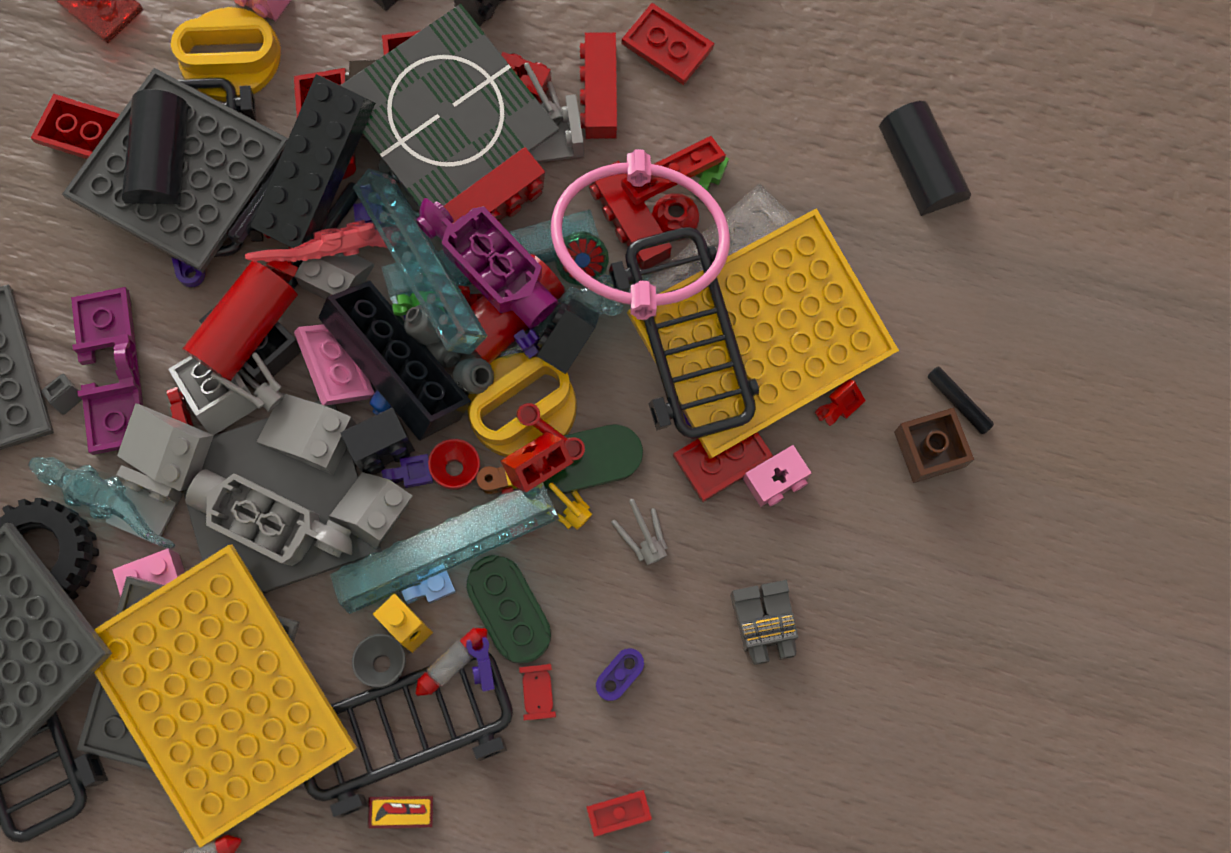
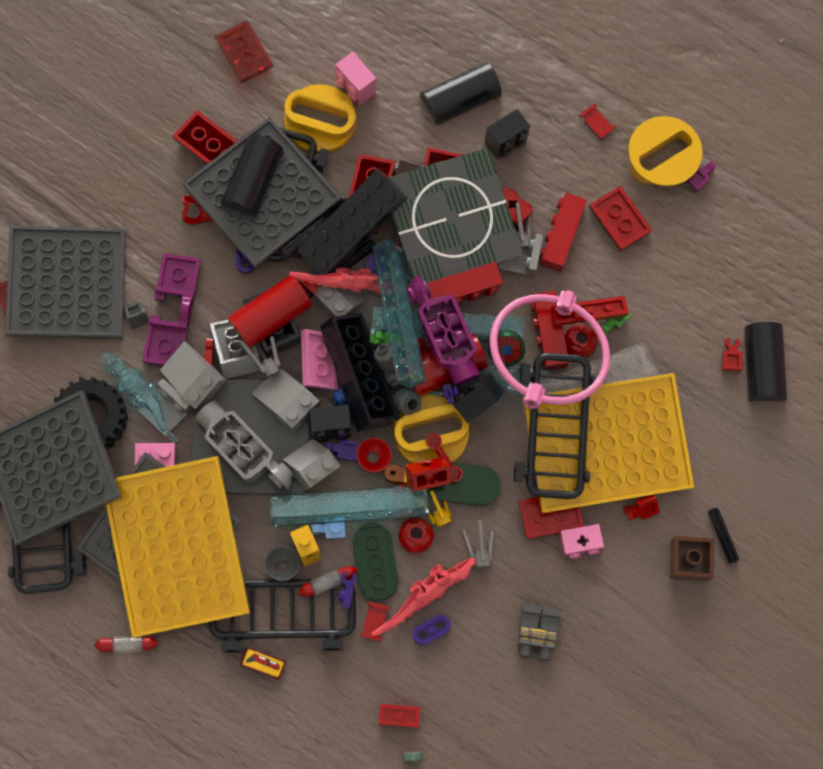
camera: 15 degrees right, 0 degrees up
(112, 231) = (203, 217): none -> red piece
(557, 565) = (416, 545): none -> red piece
(594, 624) = (428, 590): none -> coral animal
(879, 168) = (732, 358): none -> red plate

